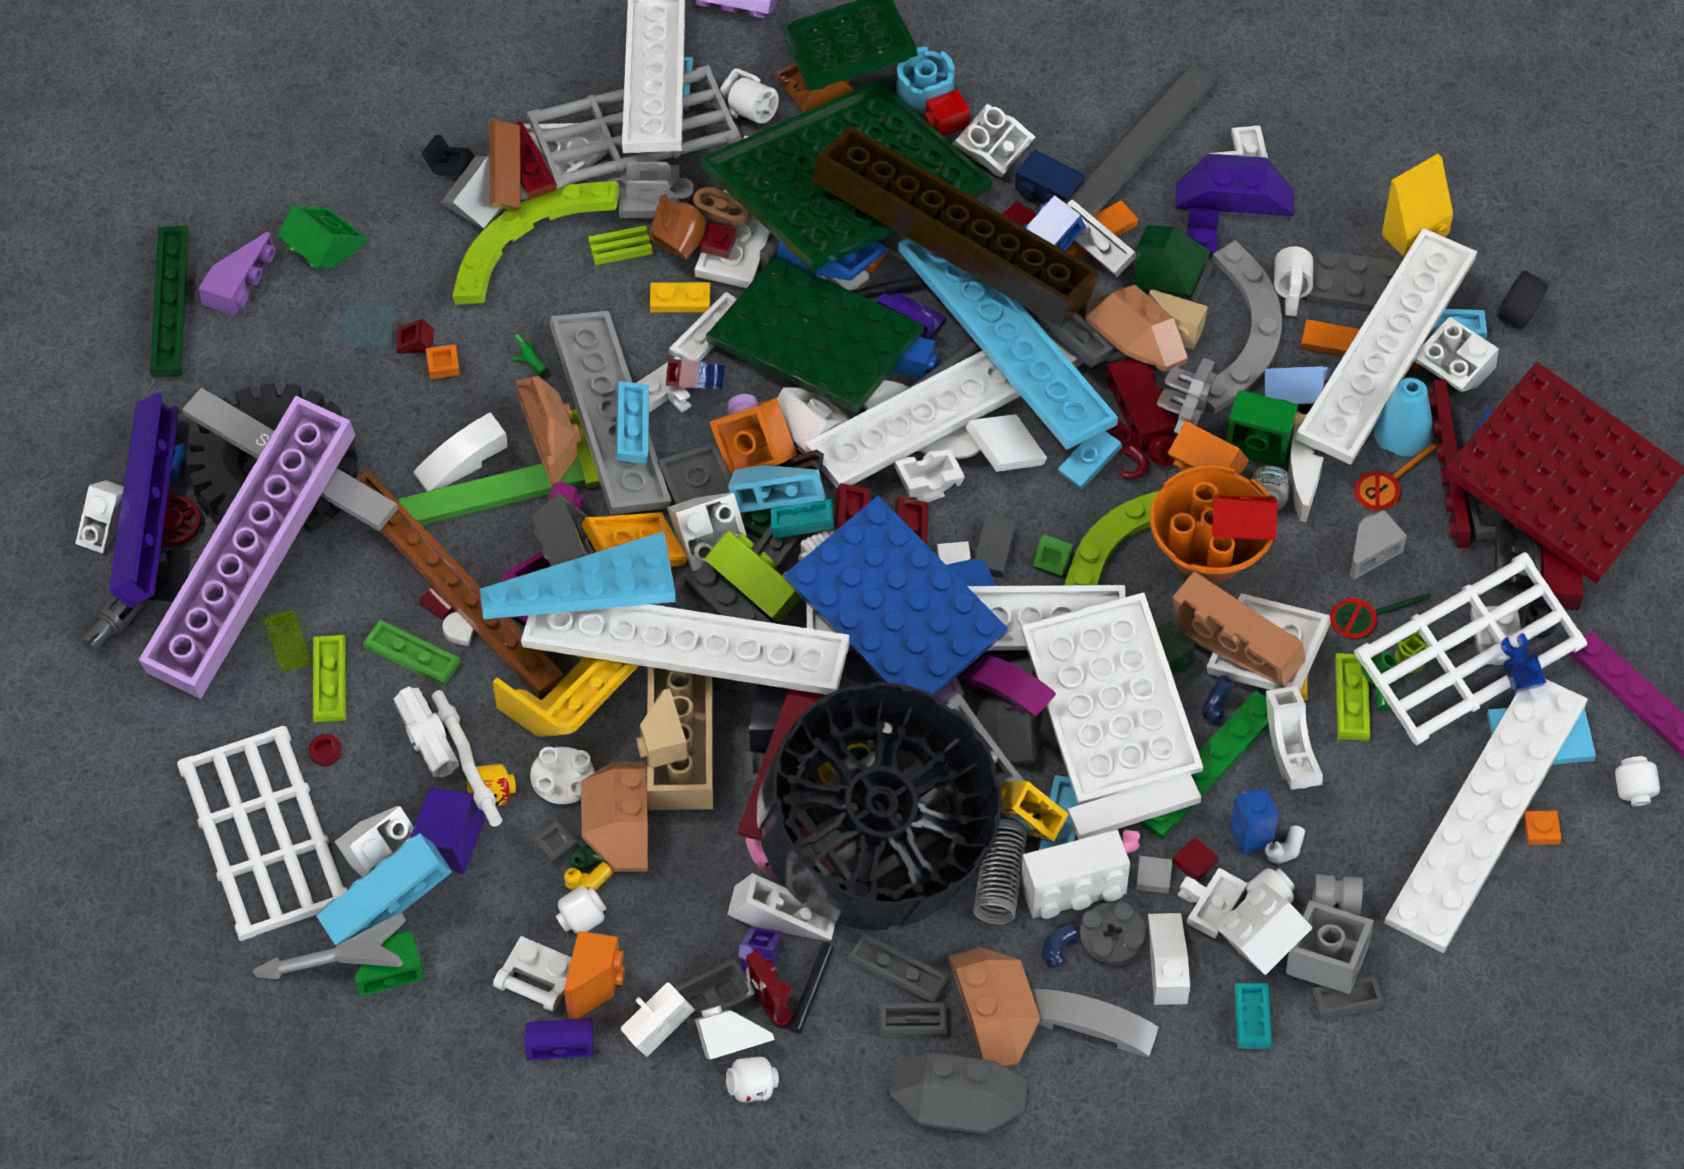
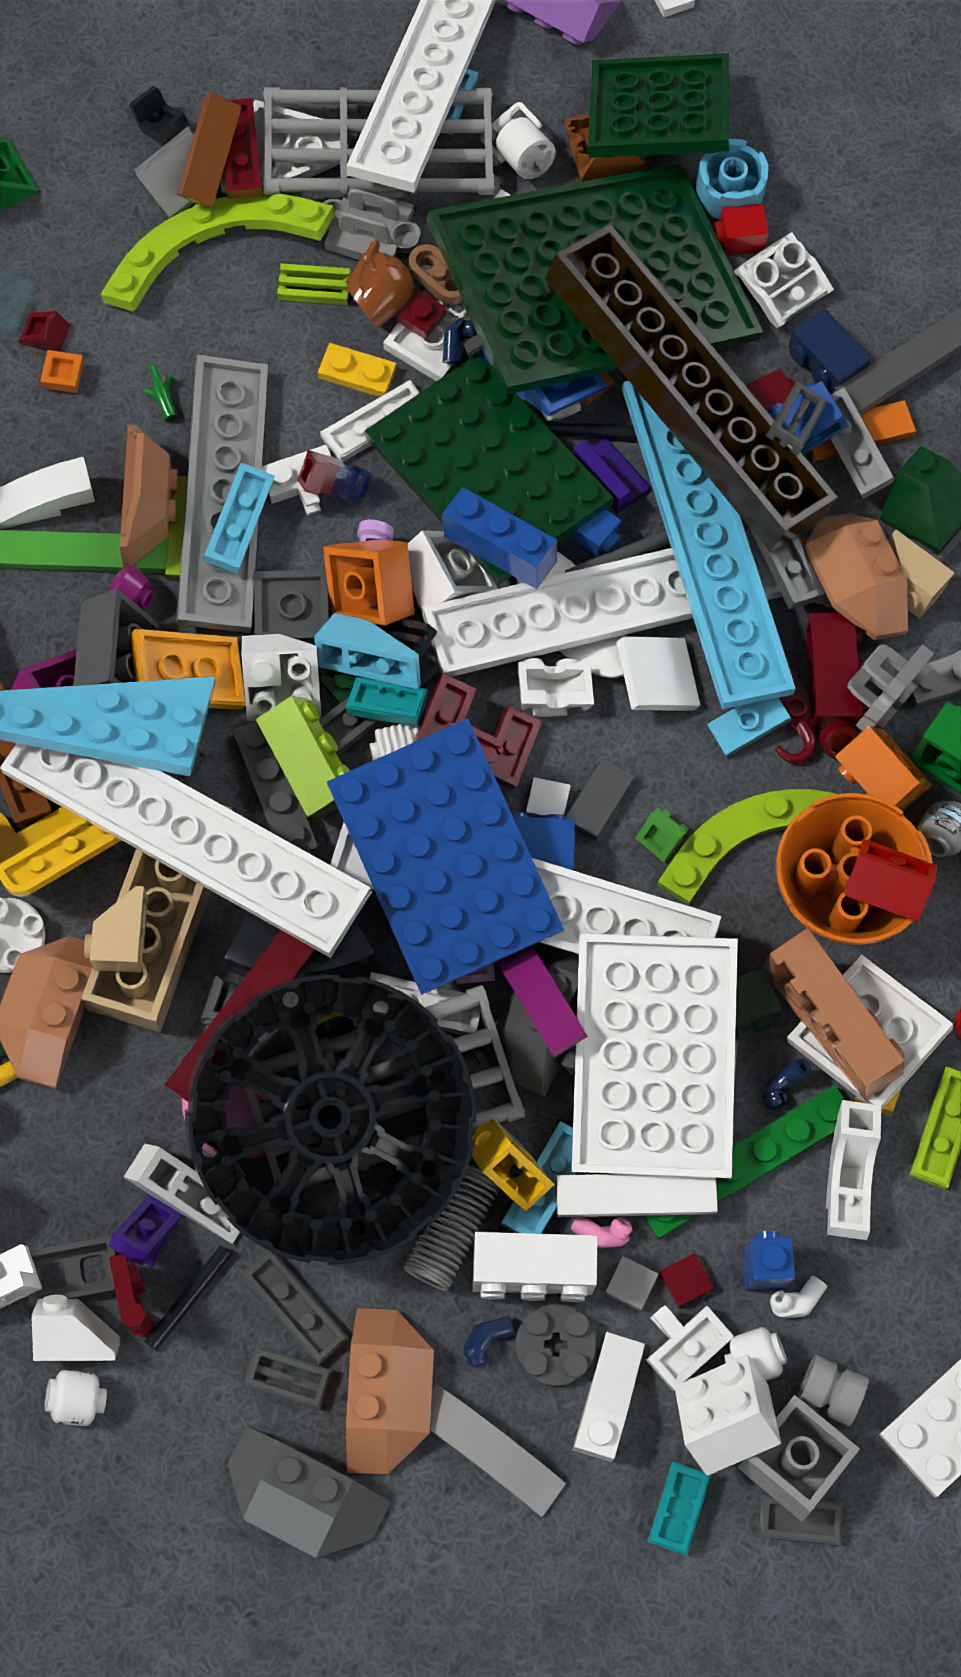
camera: 15 degrees right, 15 degrees up
(751, 249) = (454, 337): none -> dark blue arm
(849, 371) = (499, 538): none -> blue brick
(1044, 236) = (787, 435): none -> dark grey tile

